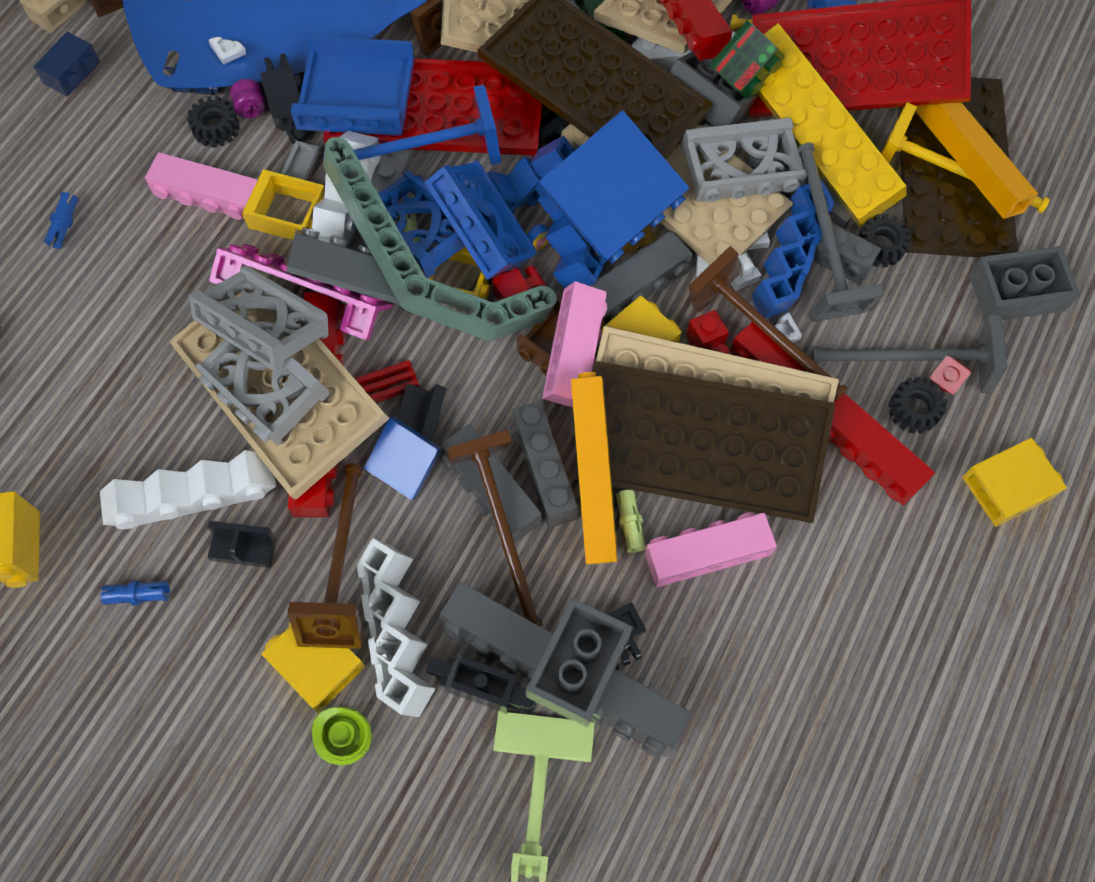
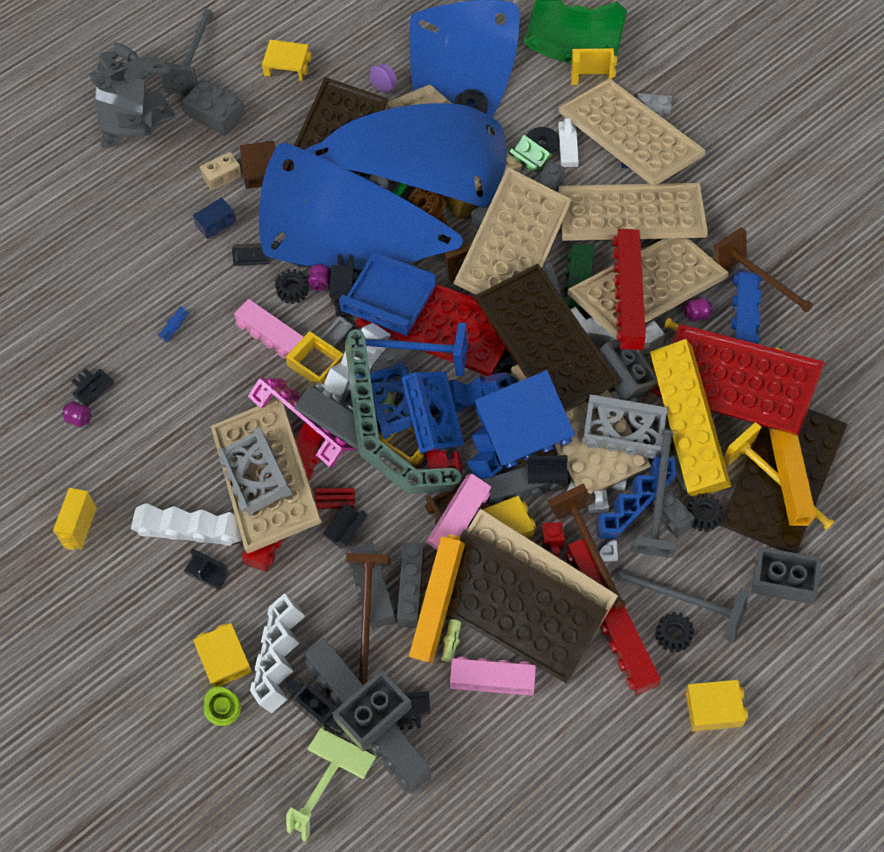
camera: 25 degrees right, 5 degrees down
(135, 592) = (134, 577): blue pin -> none
(138, 98) = (249, 255): none -> black panel
(218, 308) = (266, 453): light grey fence -> none
(227, 49) = (317, 241): white tile -> none
(331, 622) = (238, 634): reddish brown tile -> none
(402, 458) = (323, 550): tile -> none
(537, 236) = (467, 432): tile -> none
(666, 247) = (547, 469): none -> black panel
(748, 60) = (651, 359): dark green slope -> none
(950, 375) = (703, 620): bracket -> none

